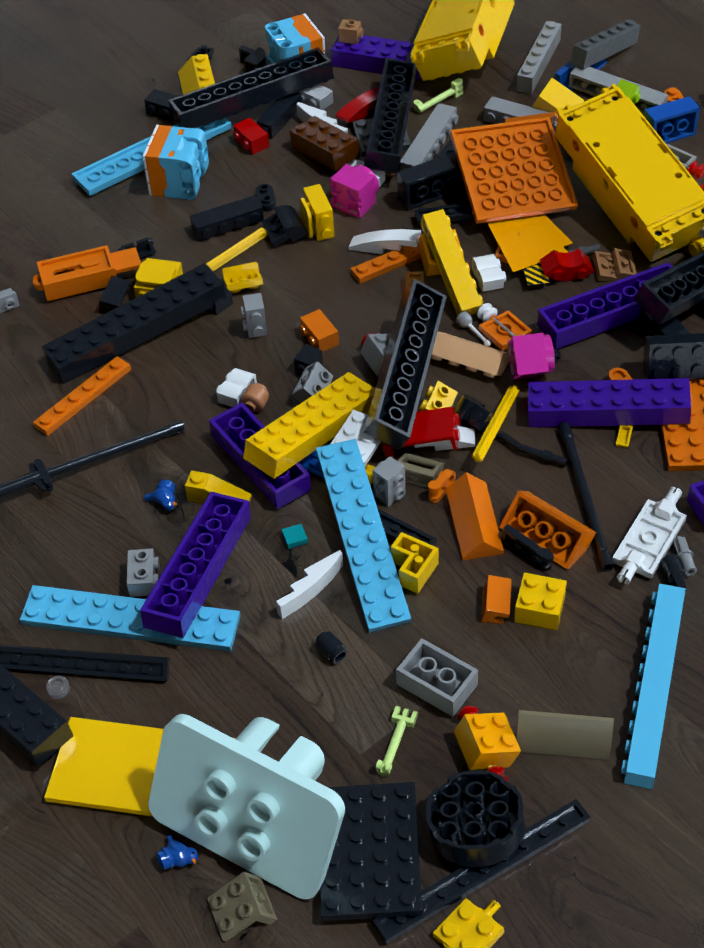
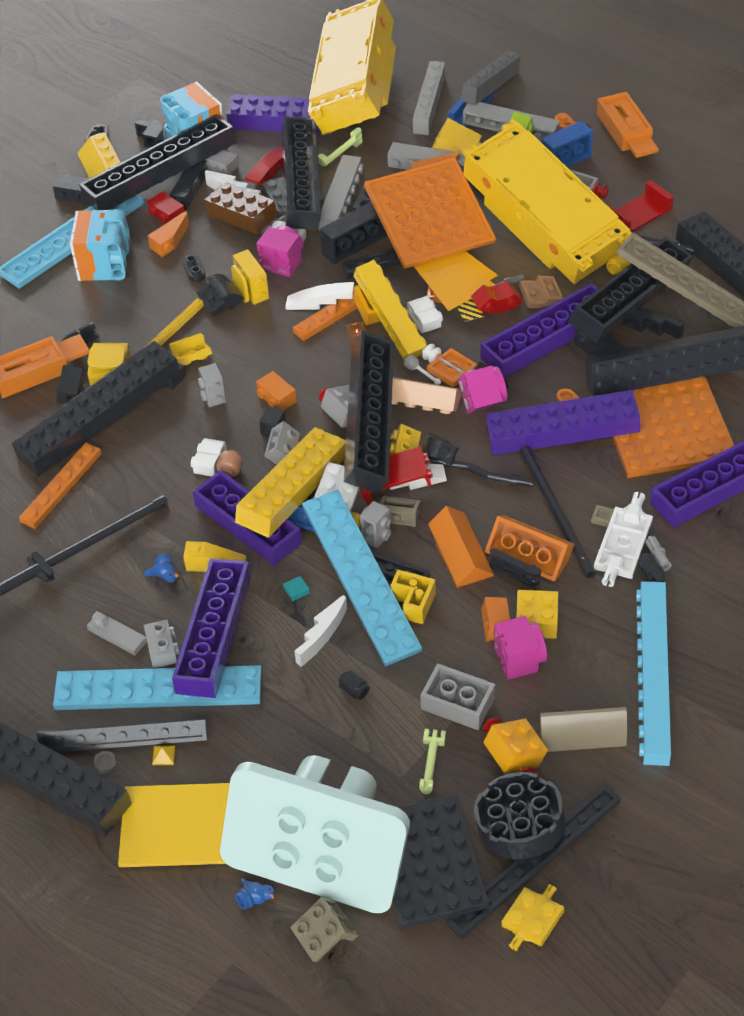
camera: 10 degrees left, 0 degrees up
(101, 554) = (116, 633): none -> light grey hinge
(119, 690) = (163, 755): none -> yellow slope
(227, 218) = (161, 293): black brick -> none
(248, 161) = (169, 235): none -> orange slope
(350, 31) = (243, 94): medium nougat brick -> none
(438, 487) = (421, 522): orange plate -> none
(495, 423) = (461, 458): yellow axle -> none
(514, 633) = (519, 646): none -> dark pink piece
(624, 436) = (581, 451): yellow piece -> none
(632, 506) = (602, 515): none -> dark tan tile

